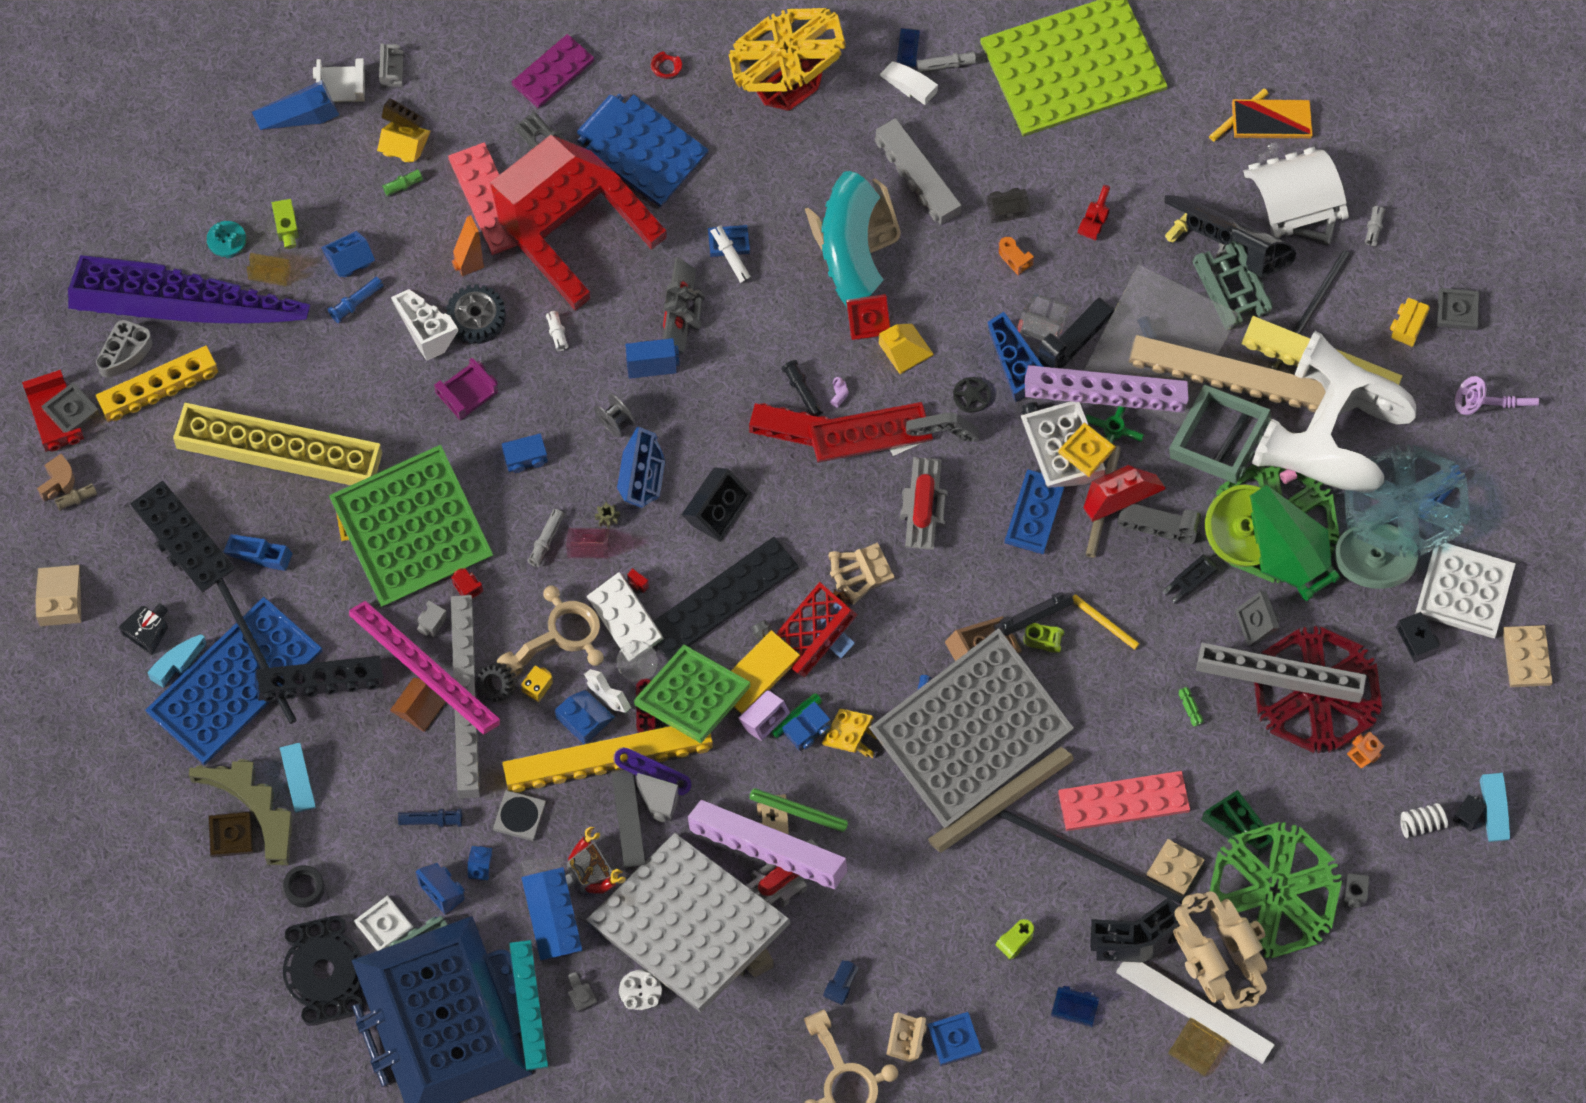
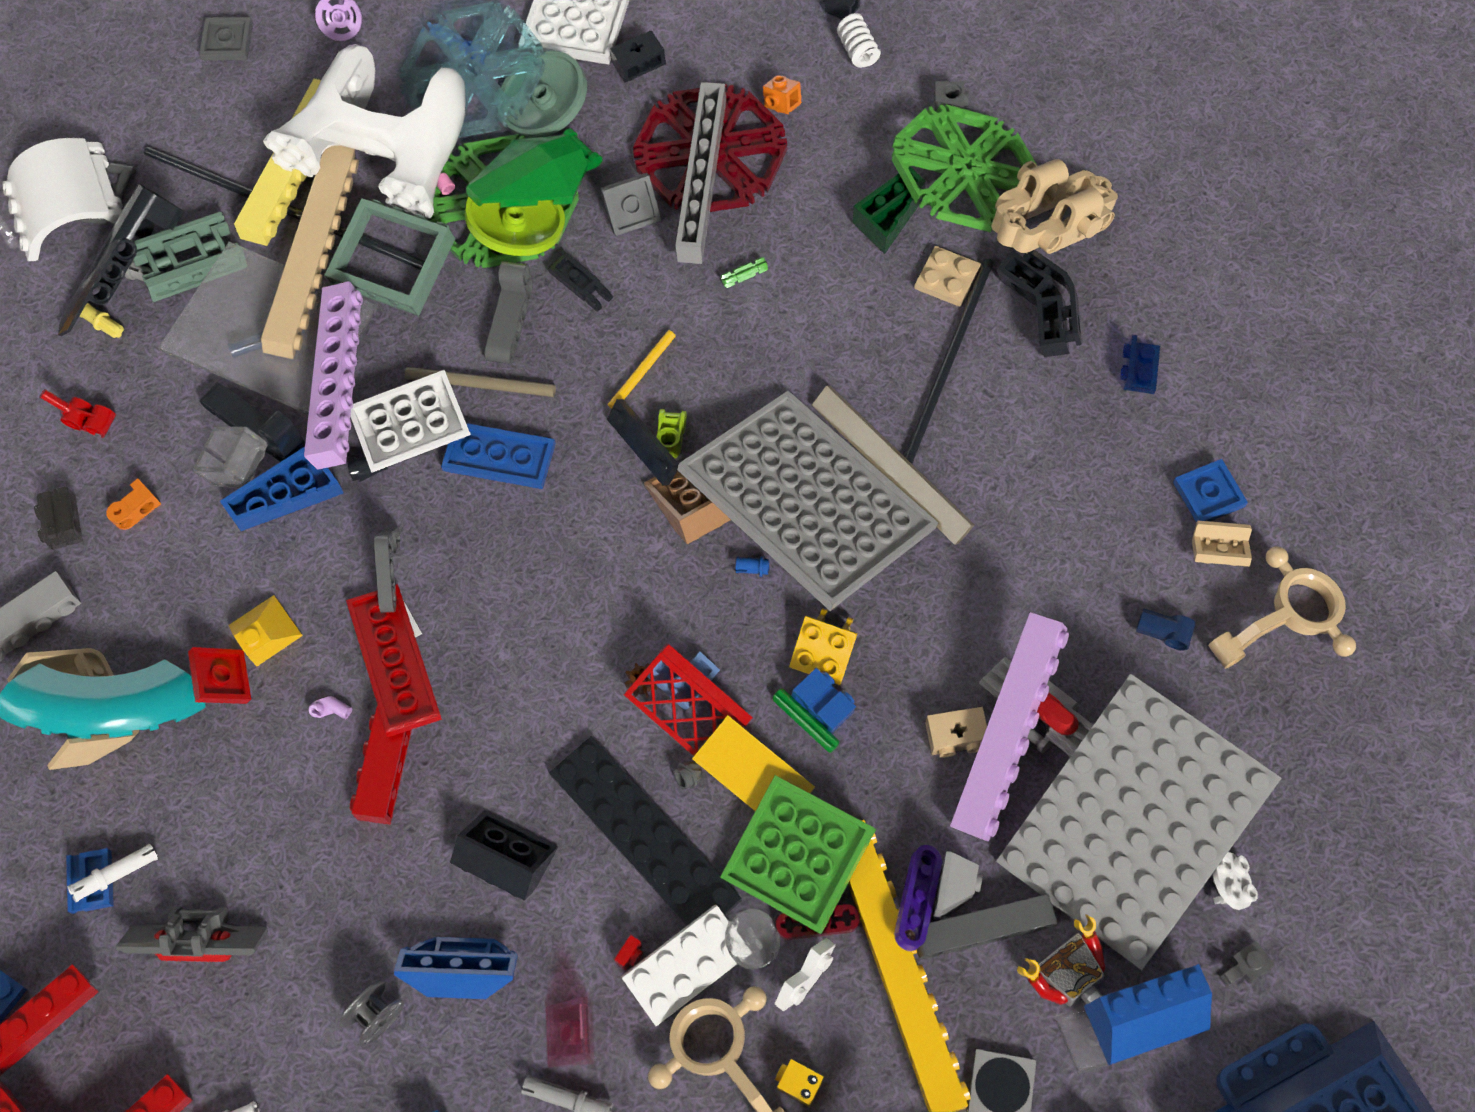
camera: 90 degrees left, 0 degrees up
(528, 1005) = (1290, 1033): teal plate -> none
(583, 716) = (840, 1006): blue slope -> none
(607, 520) = (528, 1017): olive gear -> none
(652, 358) = (279, 968): blue brick -> none
(764, 715) = (814, 757): lavender brick -> none
(798, 381) = (313, 762): black pin -> none
(798, 810) = (947, 698): bright green axle -> none
(870, 562) = (584, 643): tan plate -> none
(919, 502) = (495, 584): light grey piece -> none
(971, 394) = (333, 544): pearl dark grey wheel -> none
(1013, 941) = (1071, 434): lime piece -> none
(1086, 449) = (418, 389): yellow tile -> none
(1117, 421) = (383, 365): green bar -> none
(1120, 490) = (470, 359): red wedge -> none
(1124, 801) = (872, 335): coral plate -> none
(1196, 1008) = (1117, 243): white tile -> none
(1197, 1046) = (1161, 241): clear yellow tile -> none
(1374, 226) = (113, 122): light grey pin -> none
(1410, 321) = (242, 81): yellow brick -> none

